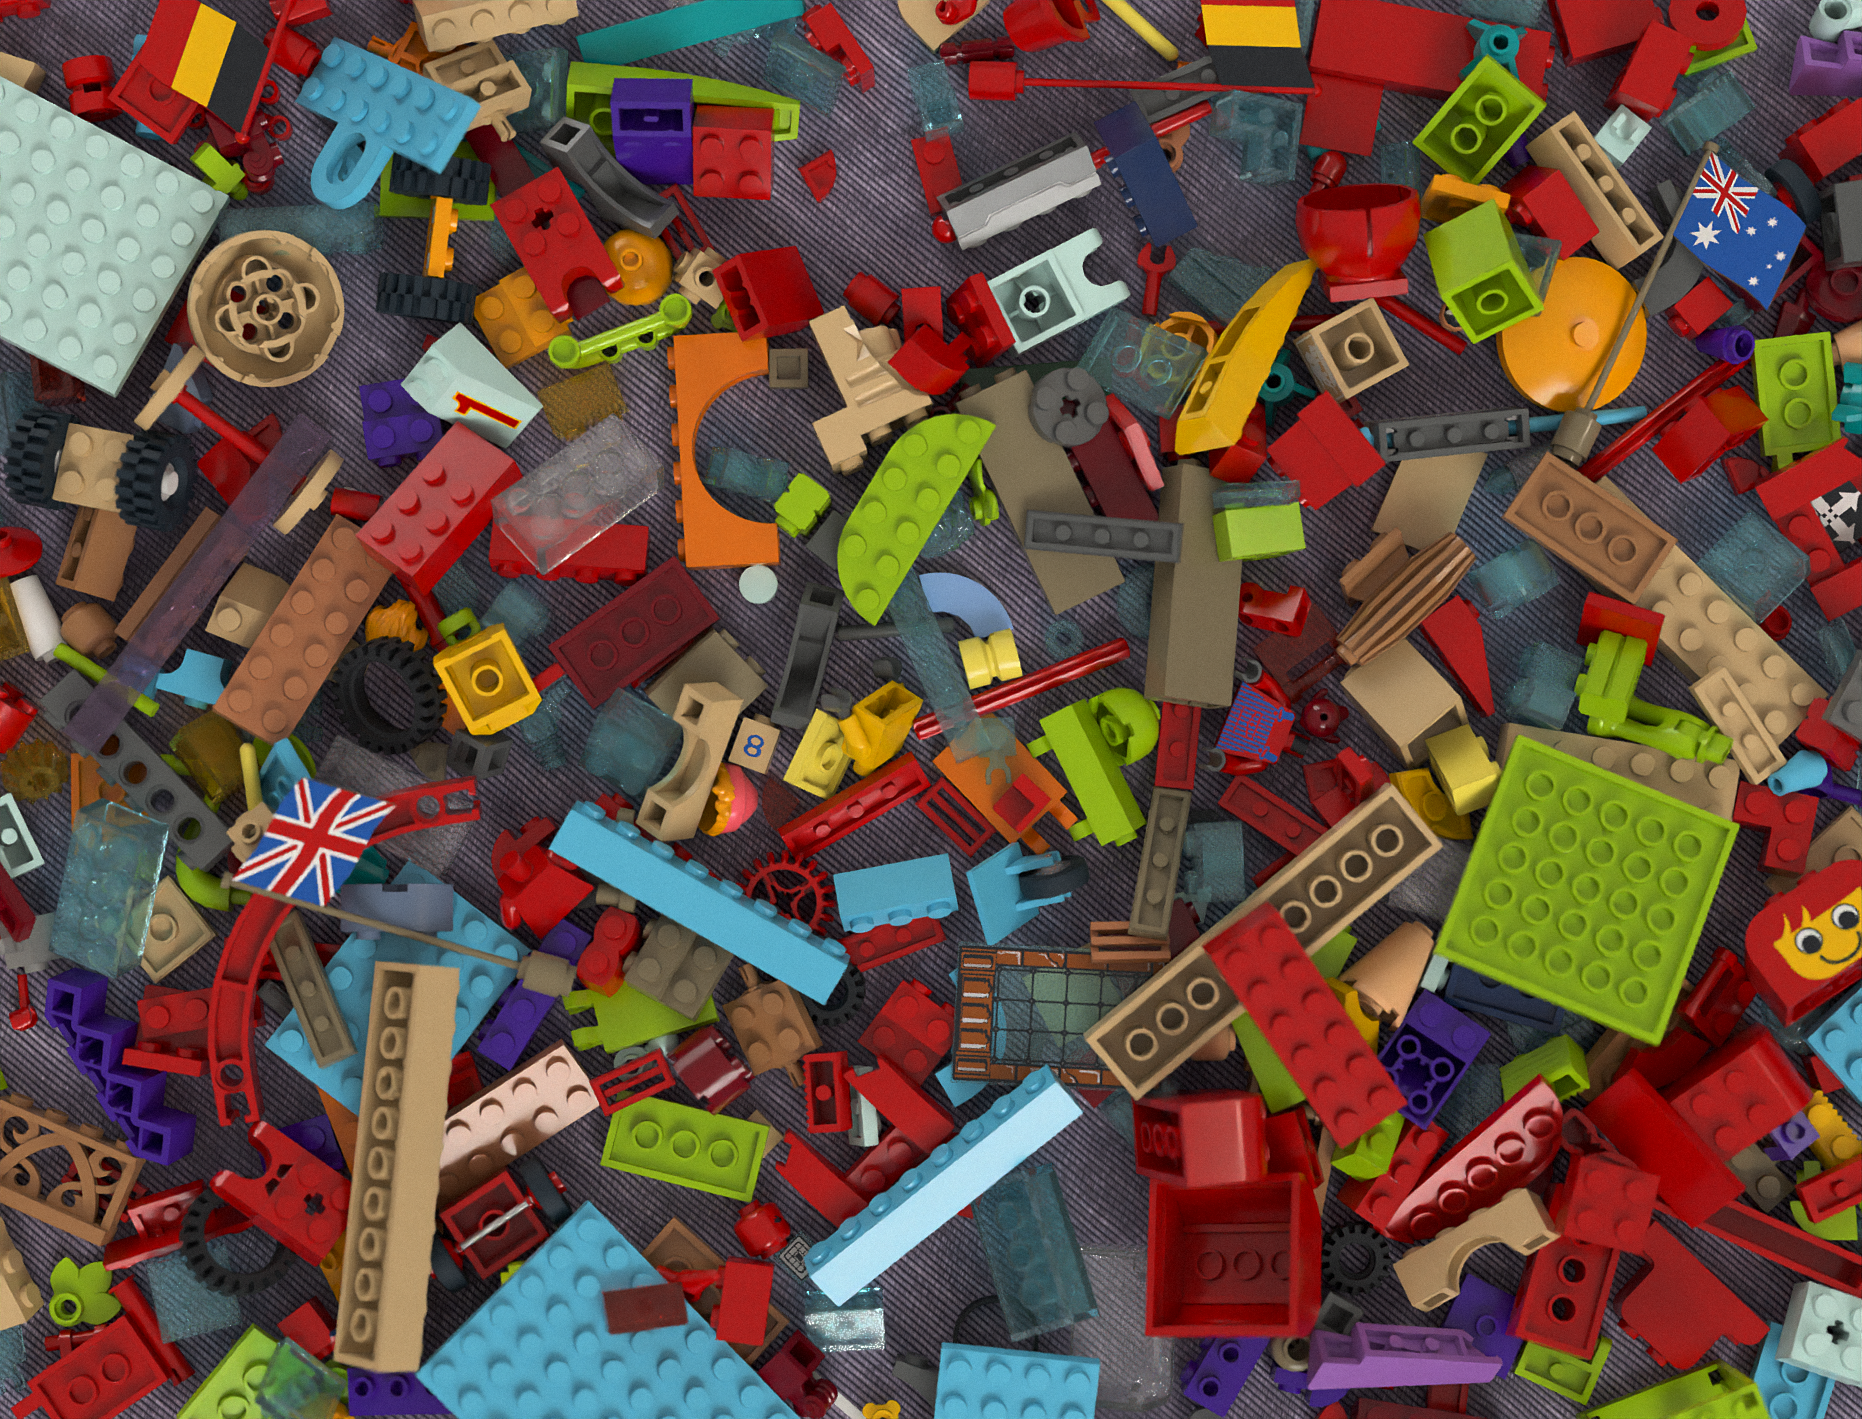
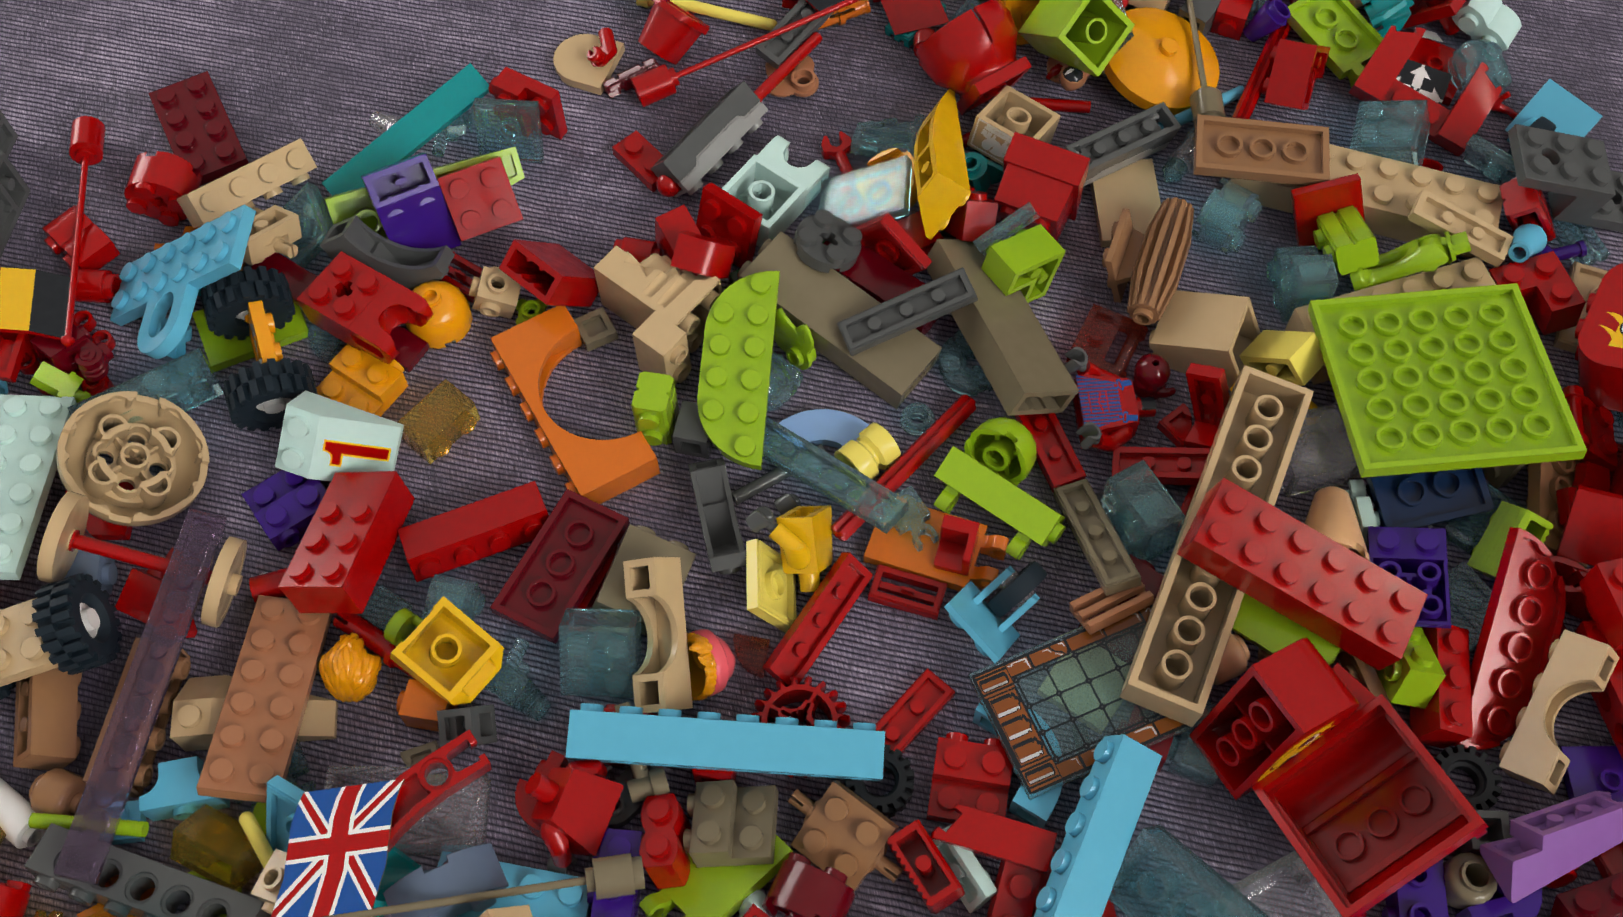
camera: 30 degrees left, 25 degrees down
(361, 715) = (326, 724): black tyre -> none
(549, 678) = (506, 636): red tile -> none
(578, 494) = (462, 478): clear brick -> none
(672, 318) = (405, 365): lime bar -> none
(746, 474) = (599, 414): clear light blue brick -> none
(755, 743) = (709, 608): tan brick -> none
(758, 584) = (648, 492): light aqua tile -> none
(820, 175) = (554, 199): red tile -> none
(895, 893) = (892, 668): medium azure brick -> none
(935, 101) = (618, 111): clear light blue brick -> none
(1145, 174) = (799, 84): dark blue wedge -> none
(1266, 129) = (863, 28): clear light blue brick -> none
(1274, 610) = (1068, 317): red leg -> none
(1460, 647) = (1216, 274): red slope -> none
(1743, 473) = (1335, 97): red tile -> none

